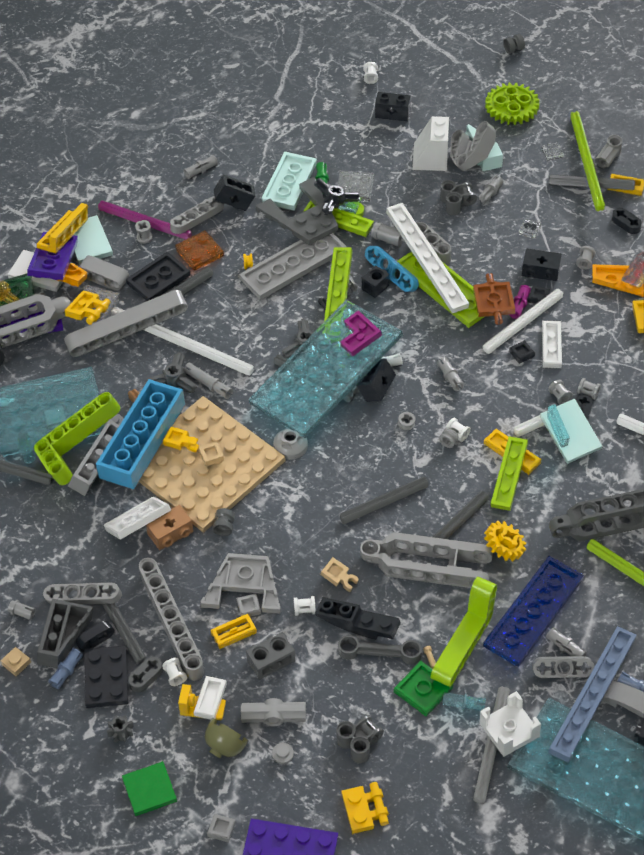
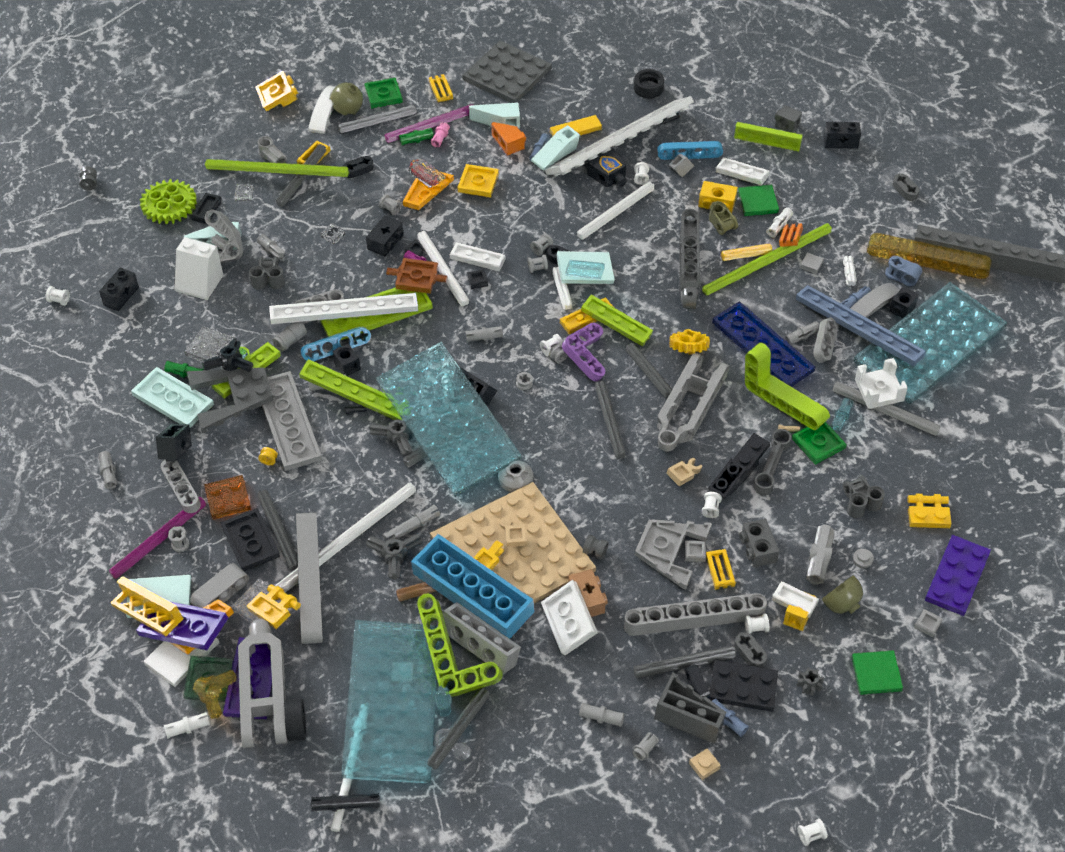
camera: 75 degrees left, 0 degrees up
(46, 569) = (602, 714): none -> light grey pin
(83, 590) = (648, 685): light grey beam -> none
(363, 333) = (432, 369): magenta plate -> none
(455, 450) = (595, 370): none -> medium lavender beam
(520, 133) = (207, 203): none -> black tile

